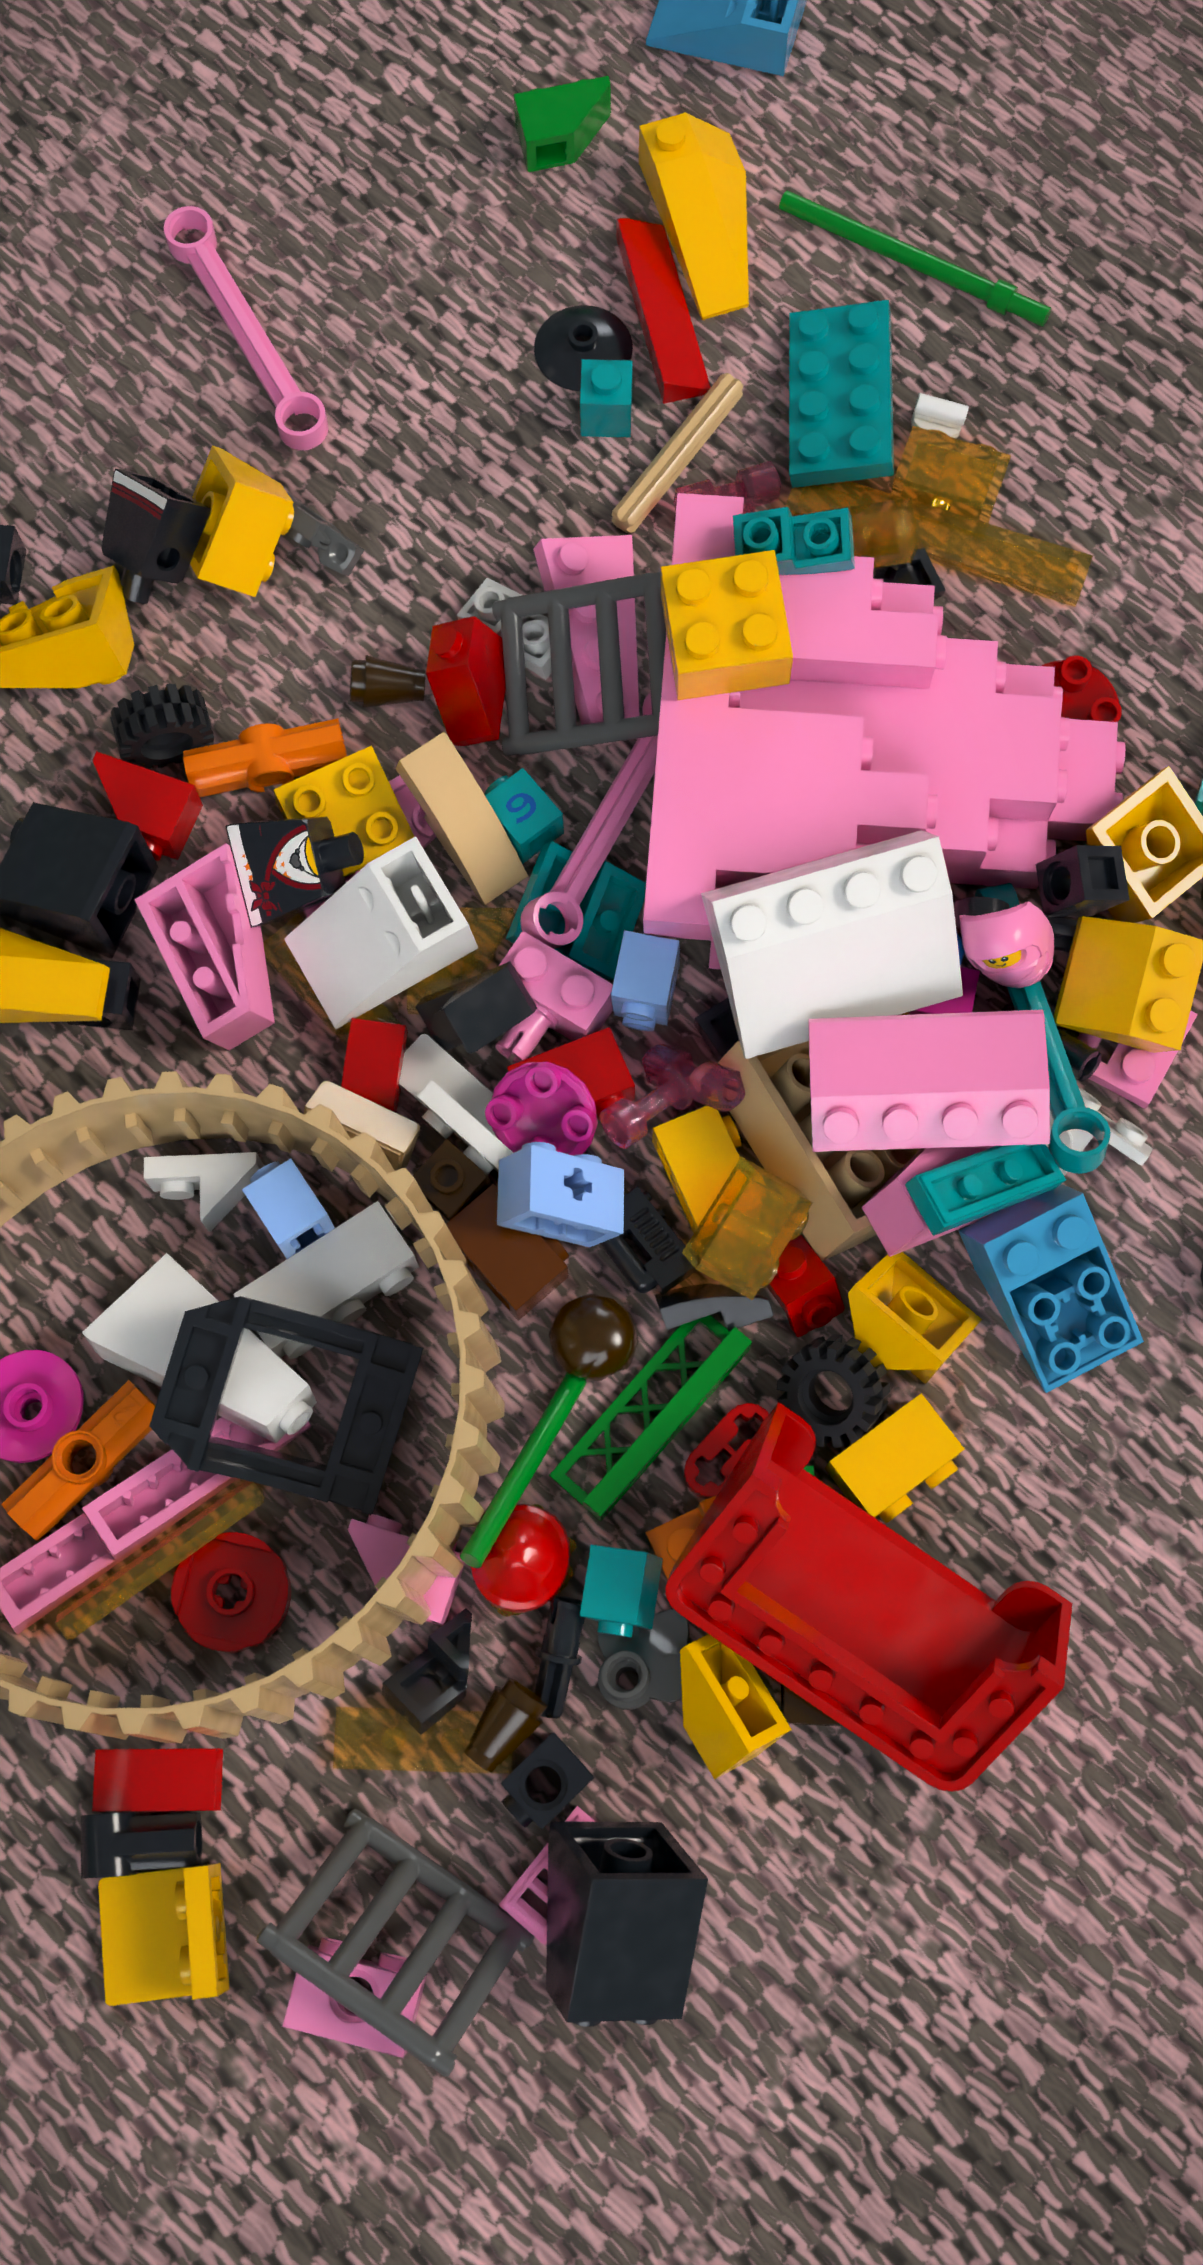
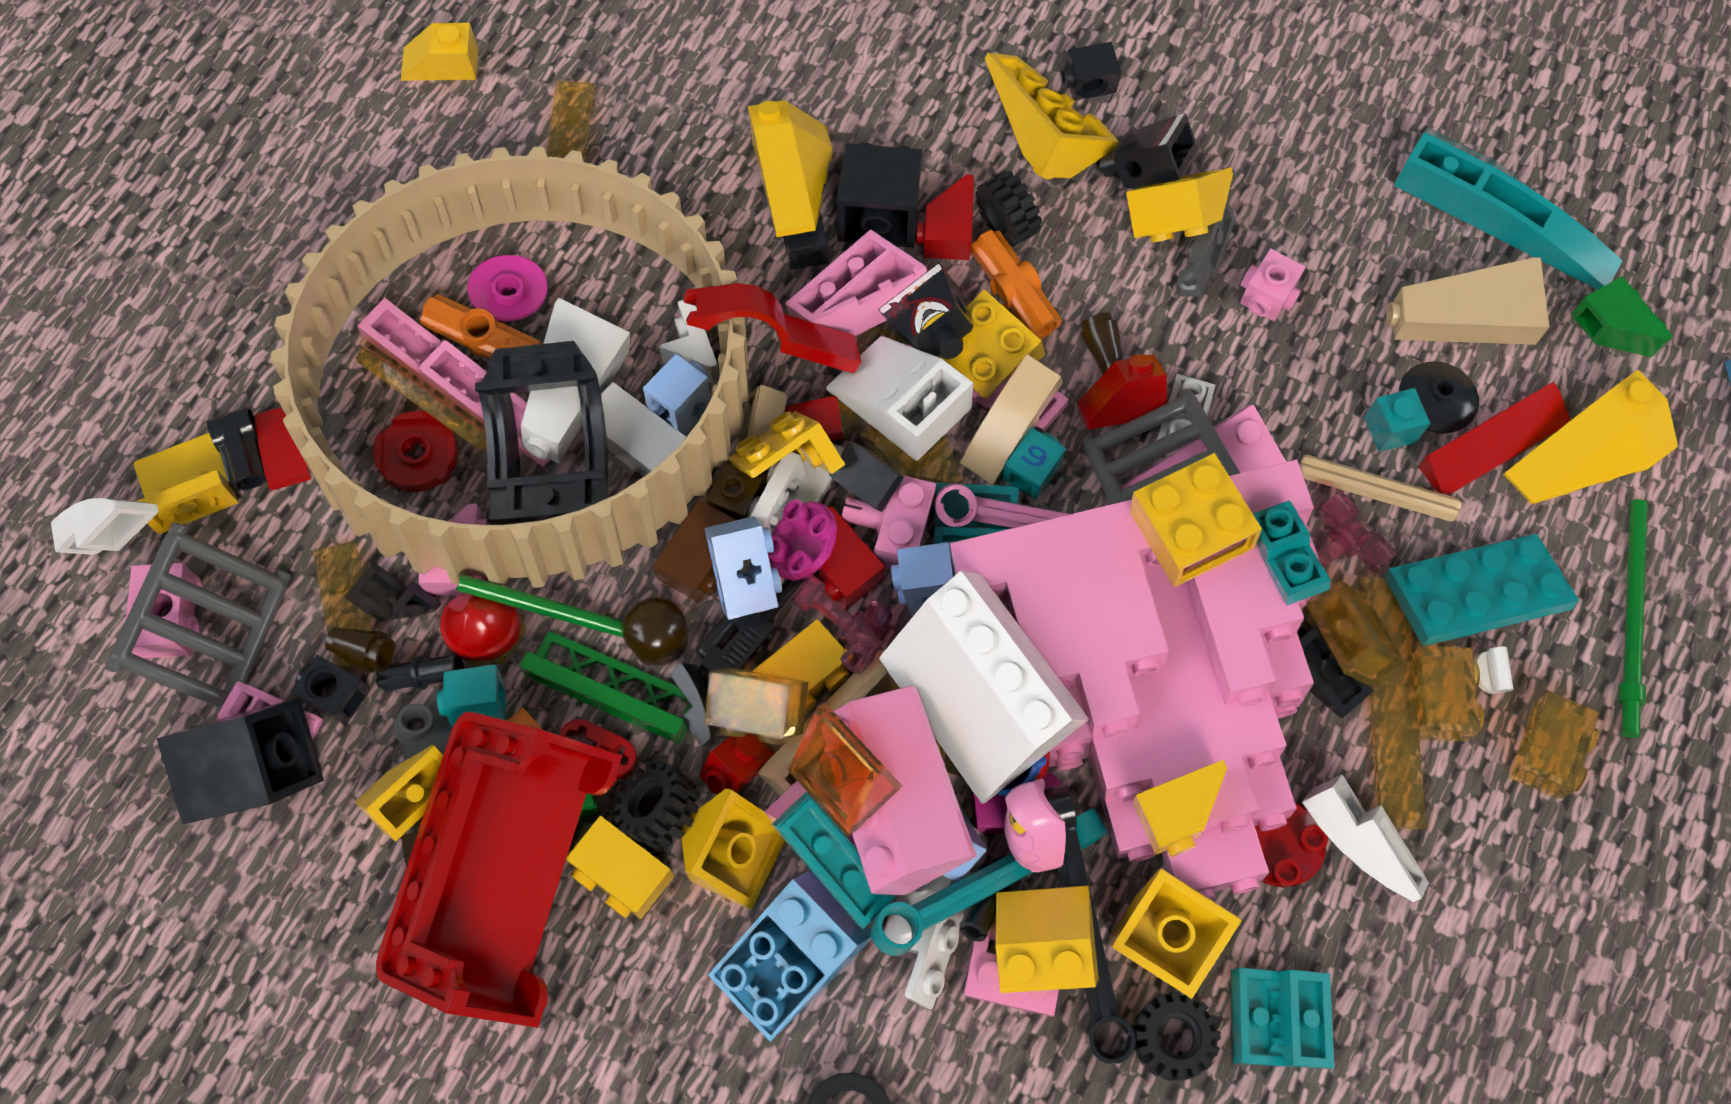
camera: 70 degrees right, 5 degrees down
(208, 2058) = (100, 525): none -> white slope
(220, 1064) = (794, 334): none -> red piece
(245, 327) = (1346, 167): bright pink piece -> none
(359, 186) = (1504, 207): none -> teal wedge
(382, 464) = (1272, 285): none -> bright pink brick
(417, 1094) = (787, 434): none -> yellow bracket
(492, 253) = (1477, 306): none -> tan slope
(909, 1125) = (841, 771): none -> clear orange slope
(1040, 392) = (1555, 746): none -> clear yellow brick
(1045, 773) = (1179, 809): none -> yellow slope
(1082, 881) = (1115, 876): black brick -> none
(1088, 619) = (1366, 837): none -> white slope

